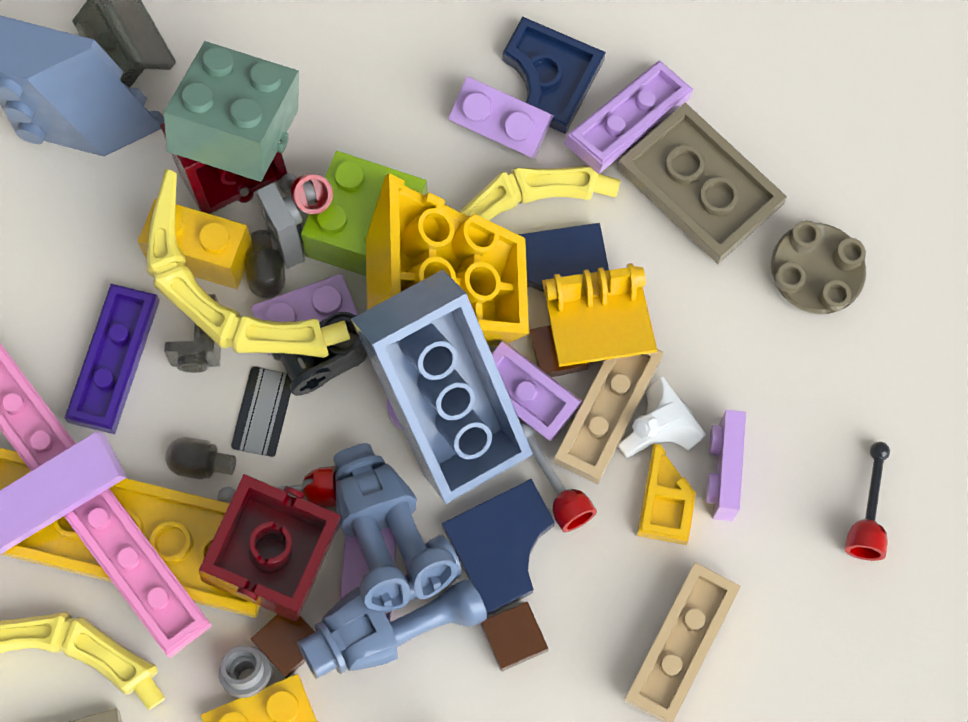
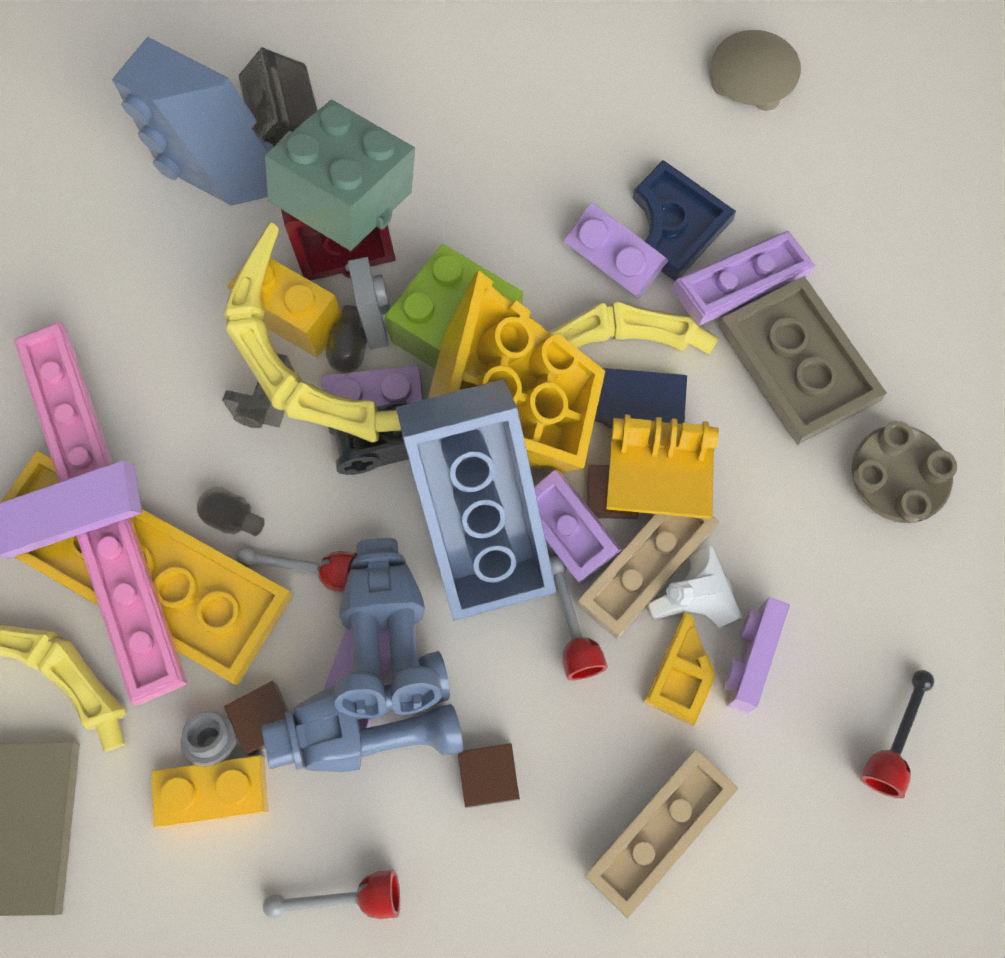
camera: 20 degrees right, 0 degrees up
(112, 359) = (178, 396): dark purple tile -> none
(262, 412) = (305, 482): sticker -> none
(269, 547) = (259, 621): dark red brick -> none
(306, 189) = (396, 273): hinge -> none
(497, 542) = (497, 672): dark blue tile -> none

